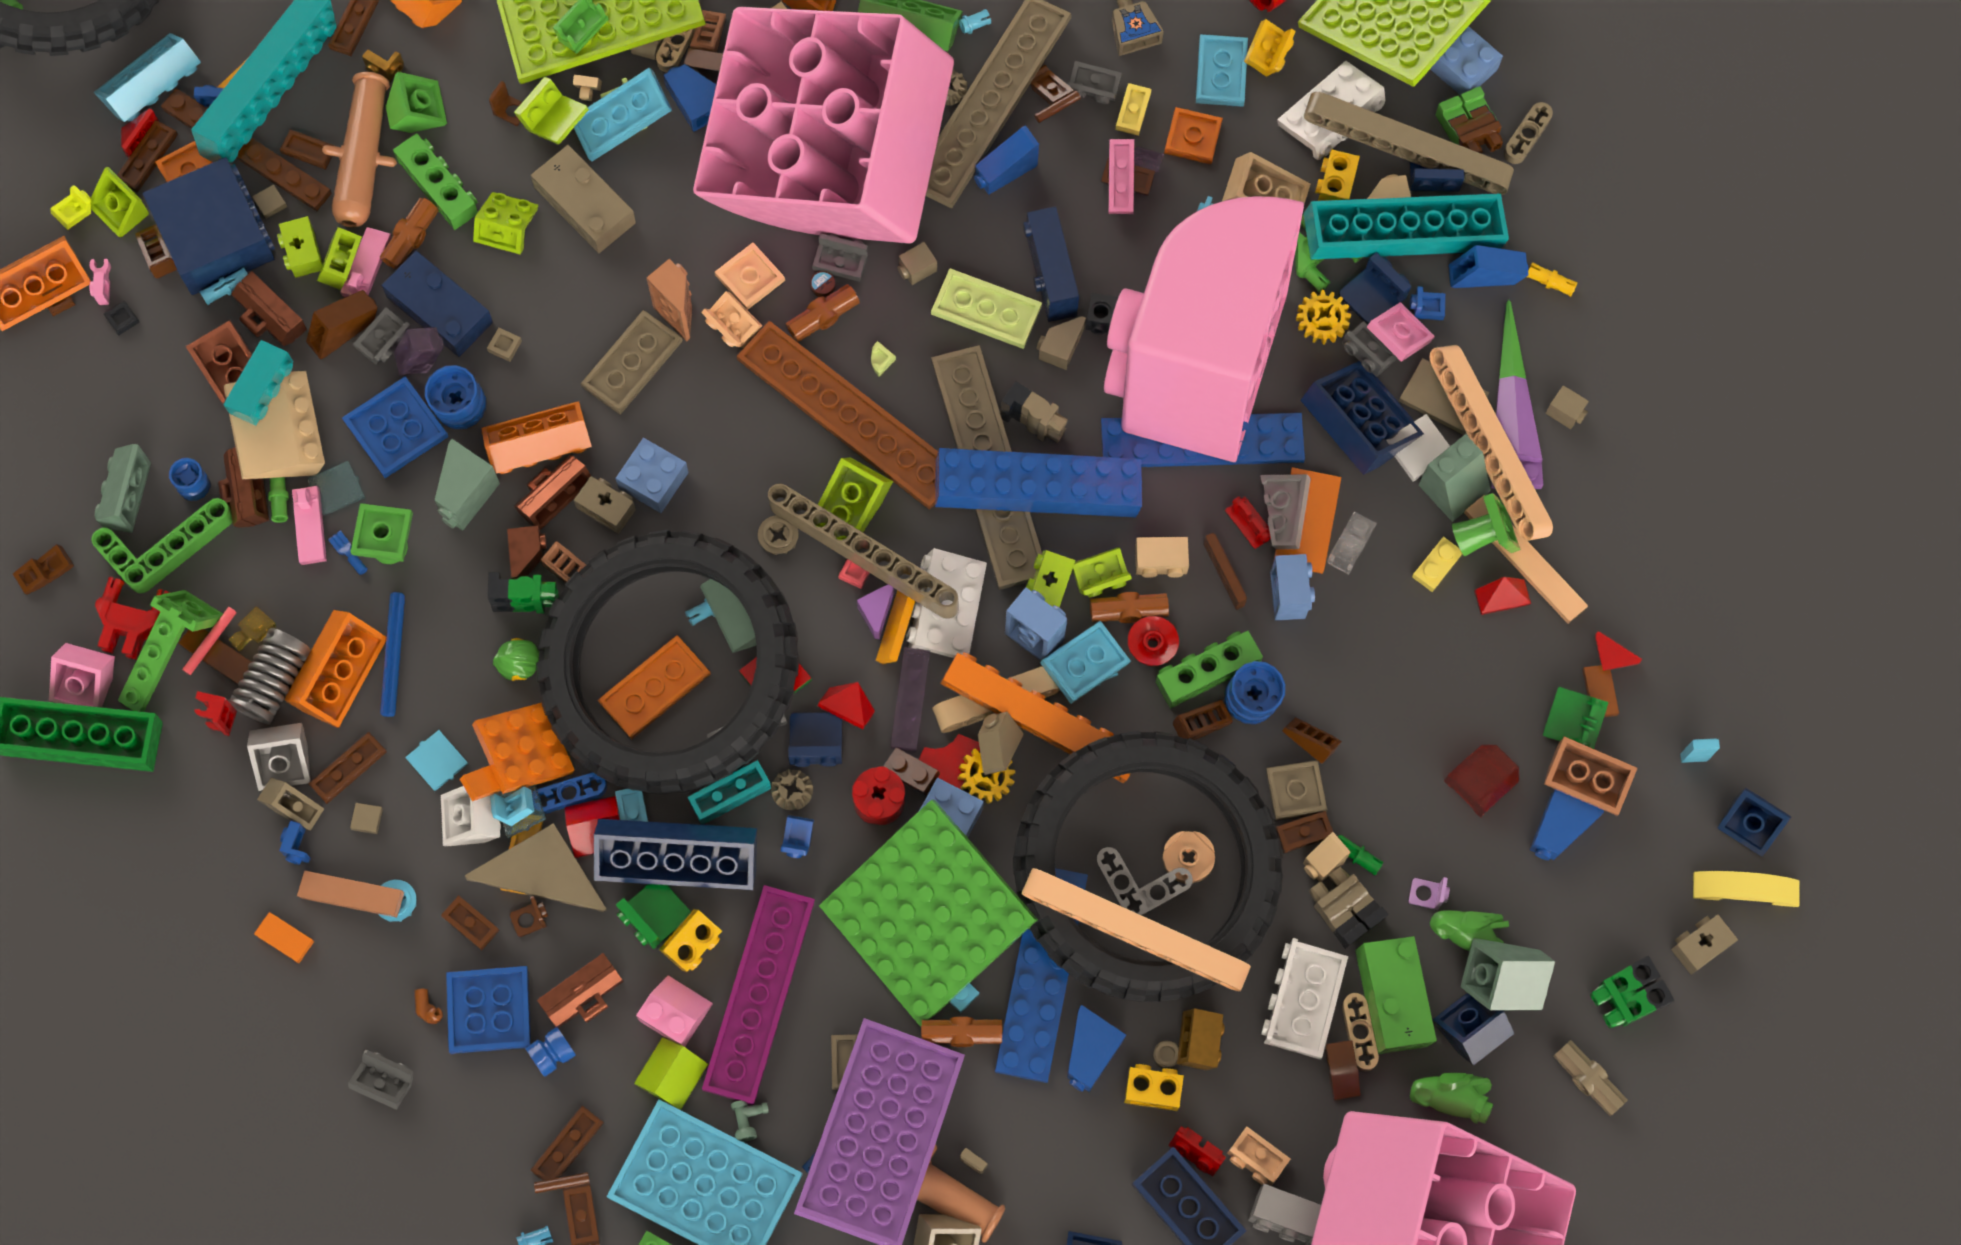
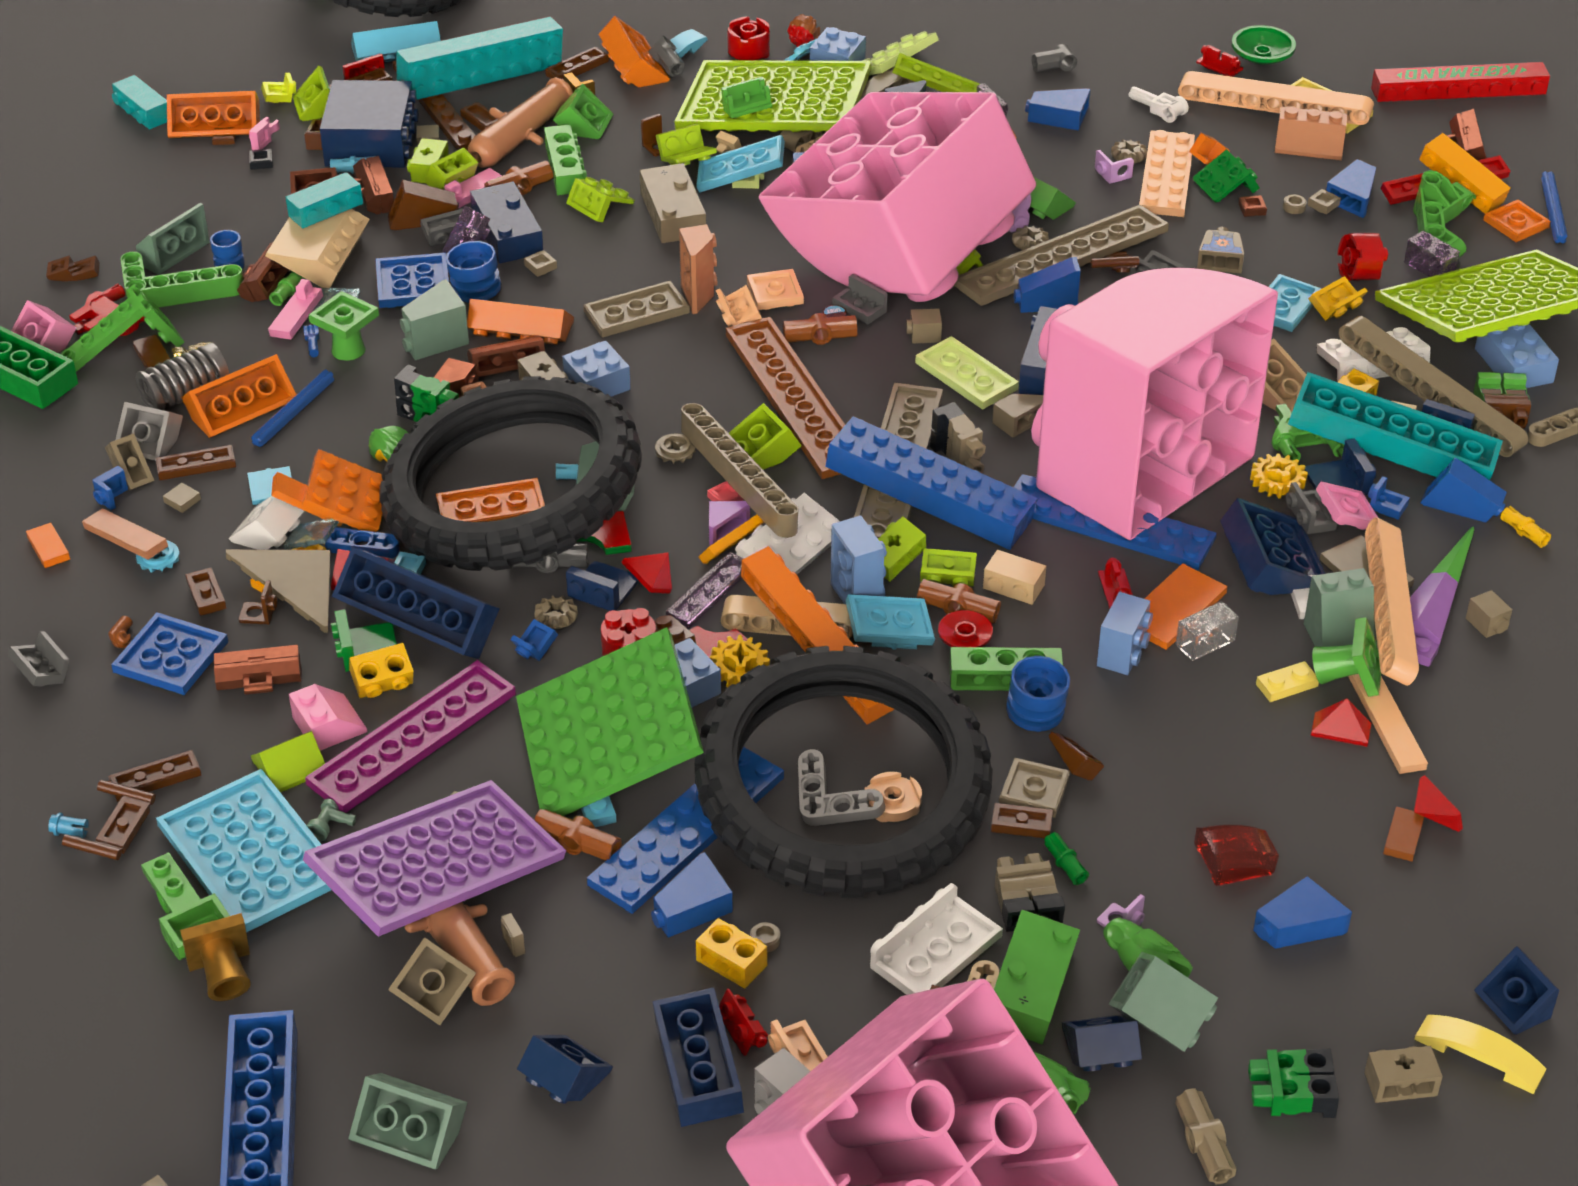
camera: 30 degrees right, 30 degrees down
(209, 641) = (156, 345): coral bar -> none
(218, 711) = (123, 381): red hinge -> none
(512, 808) = (298, 524): medium azure bracket -> none
(551, 1051) = (196, 698): blue wheel -> none
(729, 792) = (499, 583): teal brick -> none
(881, 358) = (851, 375): yellowish green tile -> none
(974, 21) = (1081, 208): medium azure pin -> none
(998, 741) = (764, 627): dark tan slope -> none
(1136, 930) = (794, 793): light nougat beam -> none
(1187, 728) = (975, 700): reddish brown slope -> none
(1200, 1039) = (805, 931): pearl gold brick -> none
(1225, 571) = (1069, 608): reddish brown tile -> none
(1286, 505) = (1161, 578): light grey wing -> none
(1326, 858) = (1029, 836): tan slope -> none
(1575, 717) = (1363, 839): green hinge -> none
(1590, 775) = (1353, 880): nougat slope -> none
(1700, 750) = (1484, 906): medium azure tile -> none

